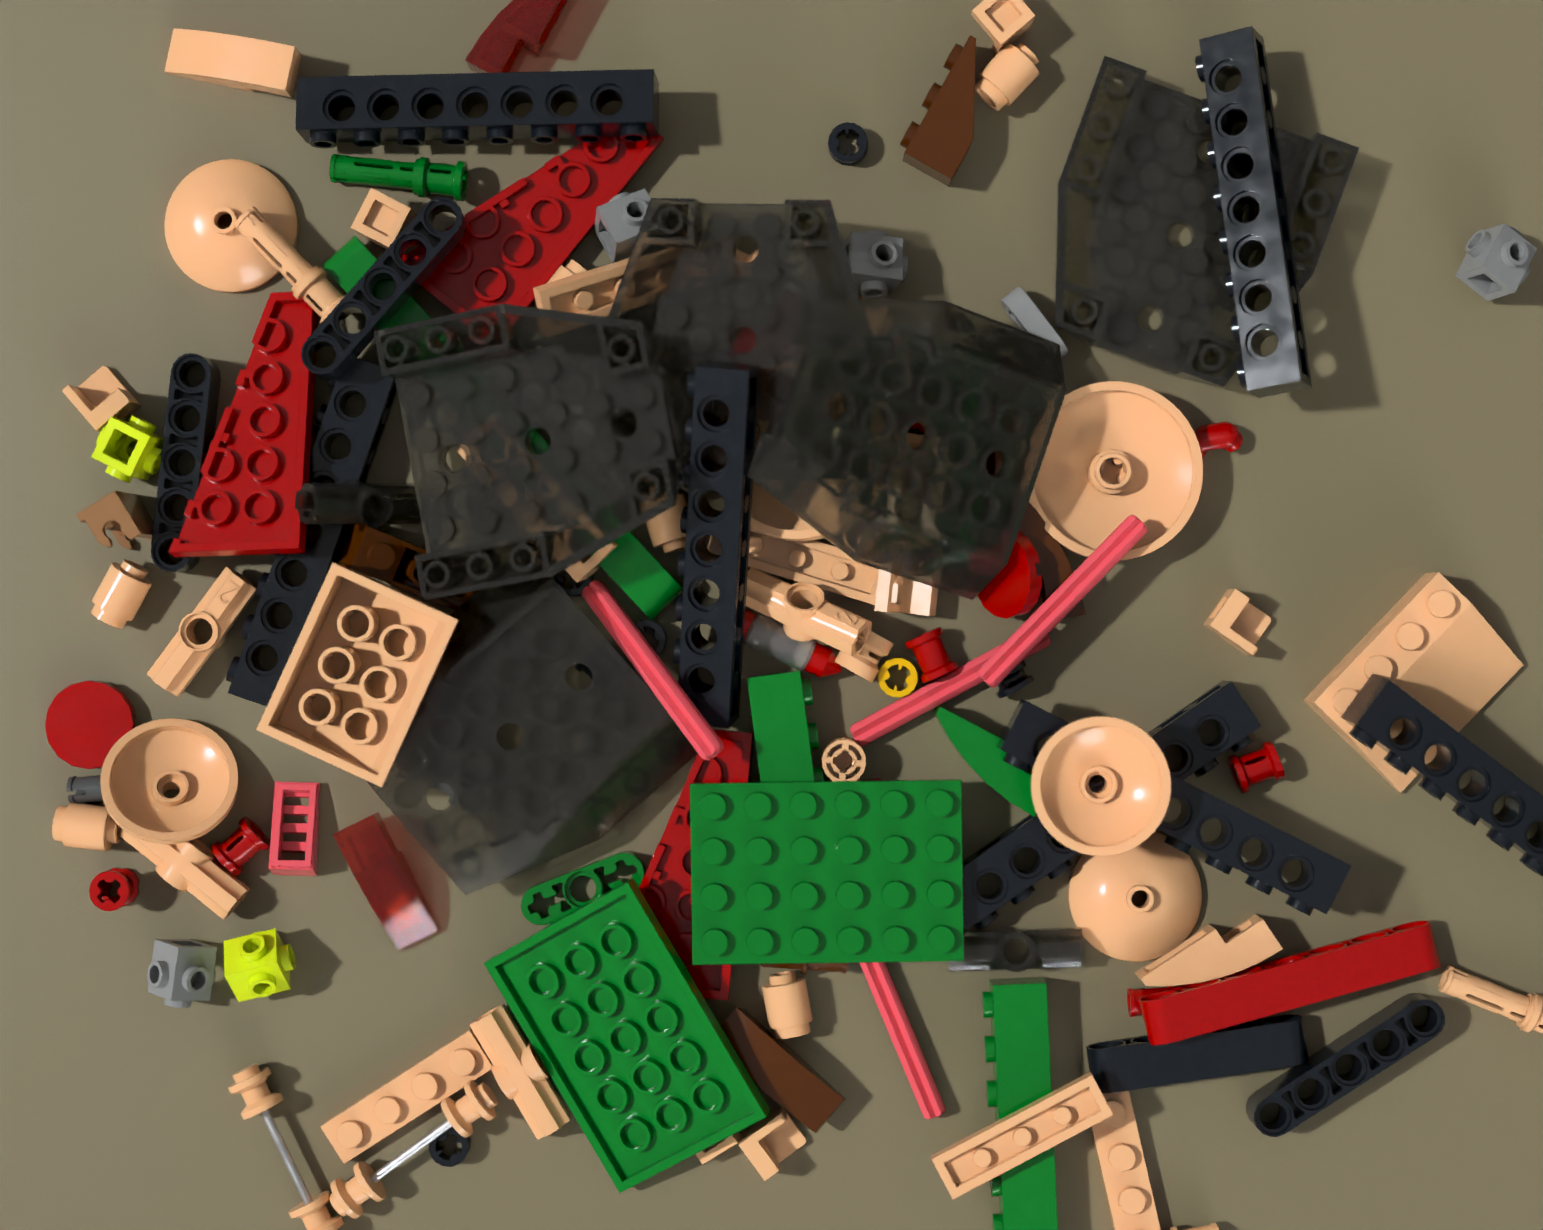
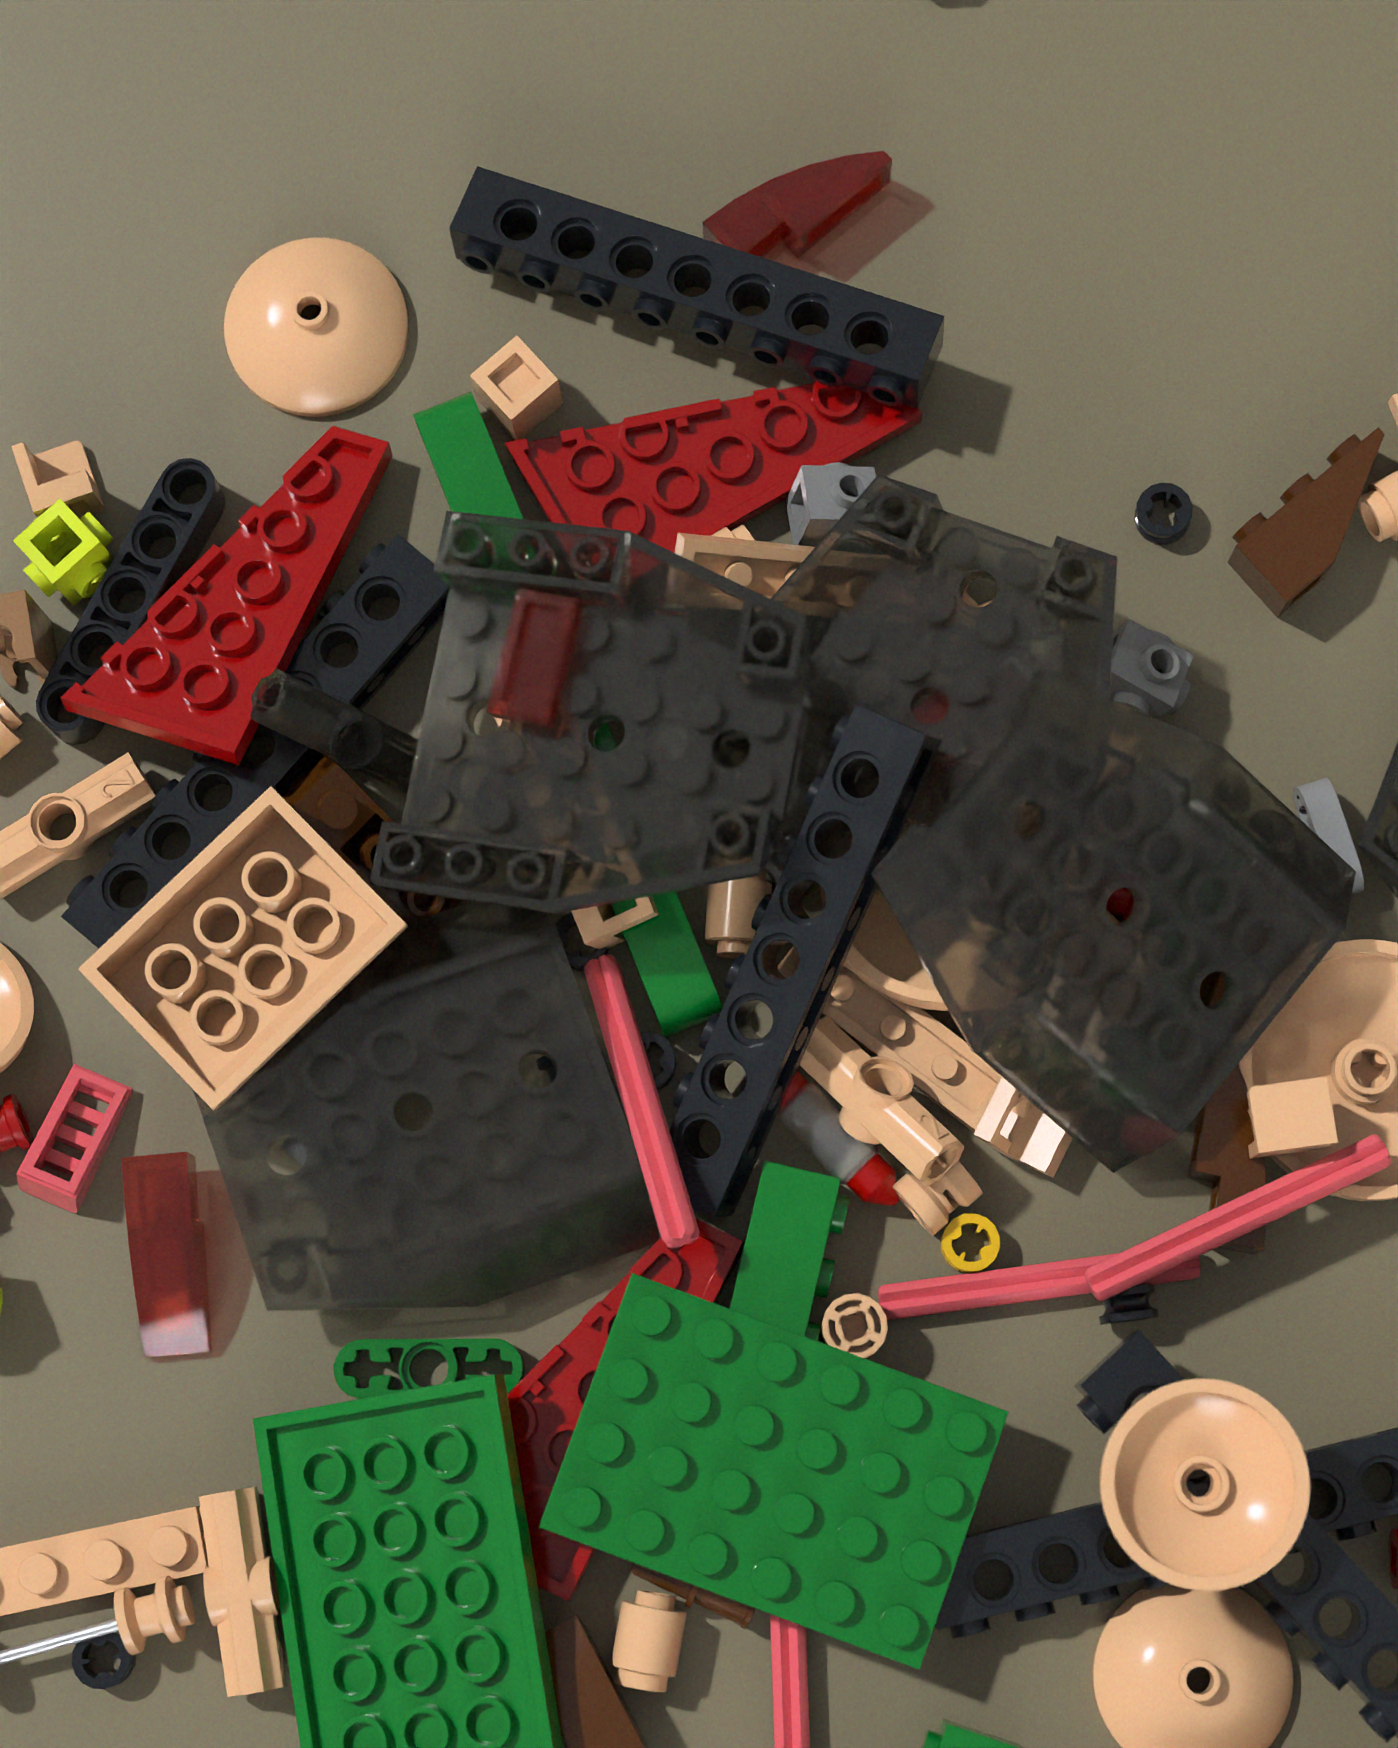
camera: 25 degrees right, 10 degrees down
(233, 61) = (405, 122): light nougat slope -> none
(307, 281) = (385, 423): light nougat pin -> none
(388, 266) = (496, 440): black beam -> none
(420, 176) = (584, 350): green pin -> none
(471, 409) = (535, 658): none -> clear red tile
(931, 655) = (1028, 1228): red bush -> none
(981, 754) = (1049, 1394): green slope -> none
(1017, 585) = (1180, 1172): red tile -> none
(1043, 949) = (1037, 1700): clear smoke piece -> none
(1073, 525) = (1291, 1117): none -> light nougat panel

